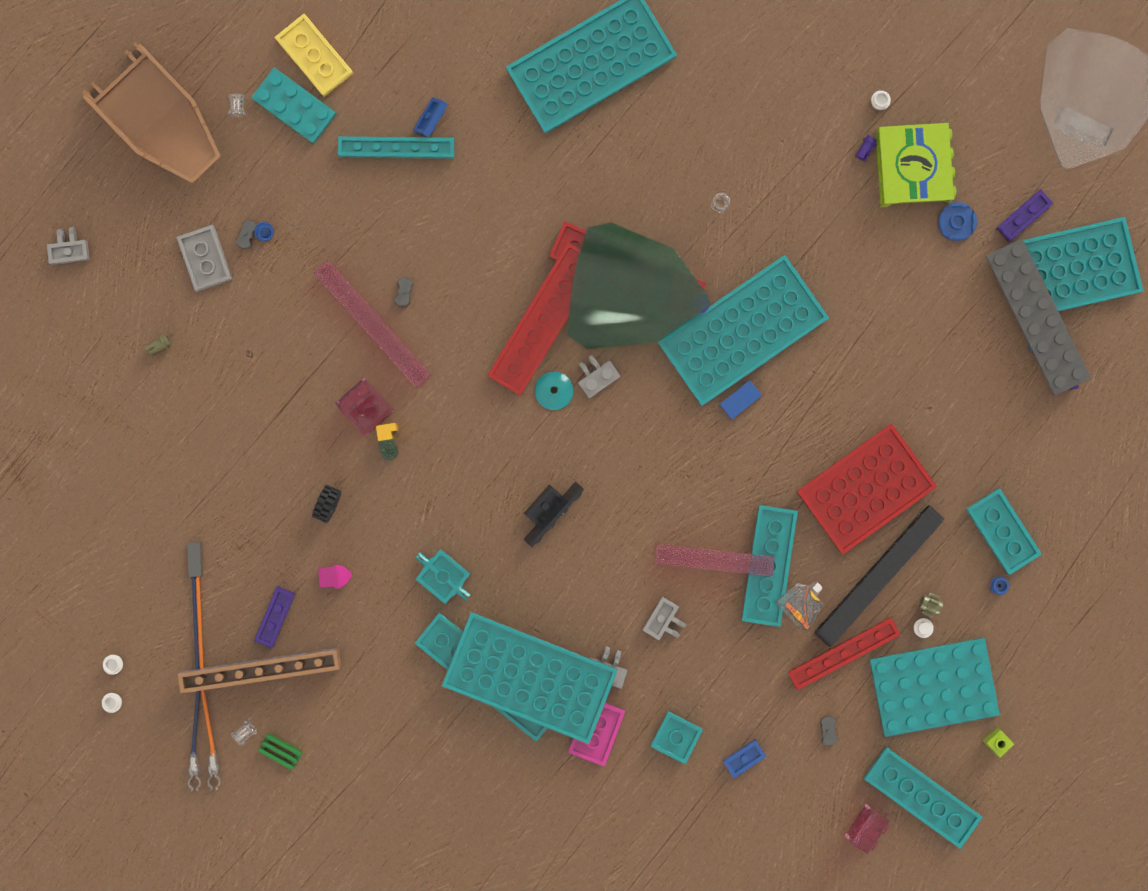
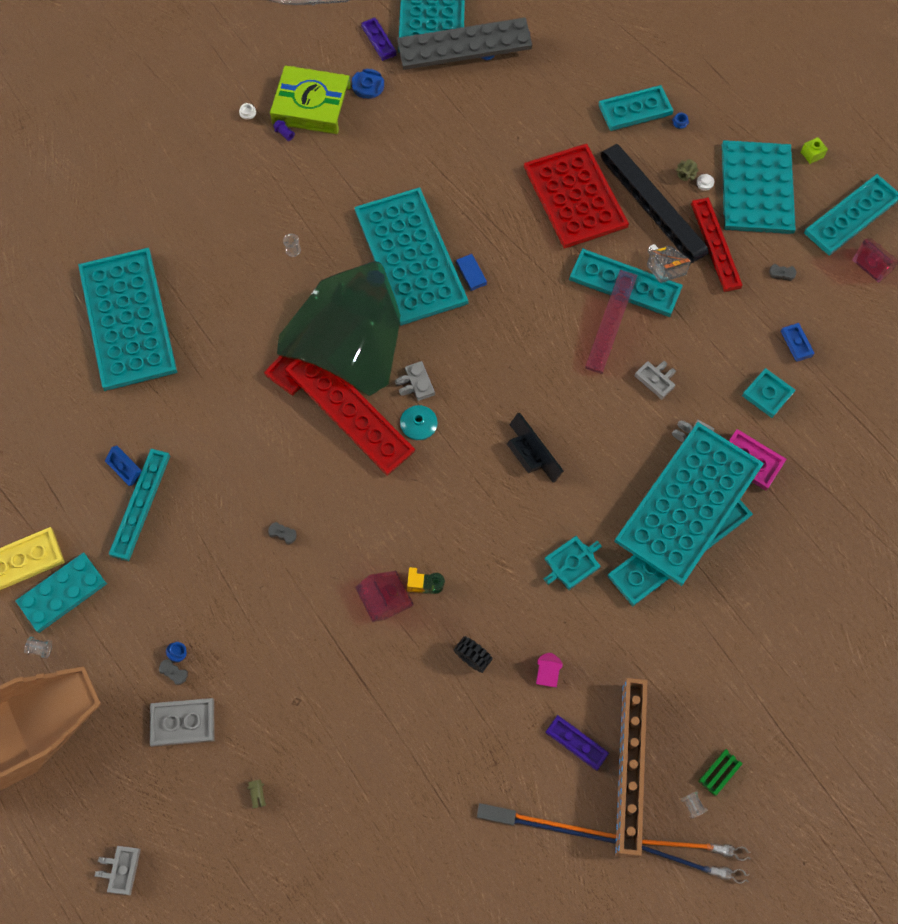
camera: 70 degrees left, 20 degrees down
(372, 323) = (303, 569): clear pink plate -> none

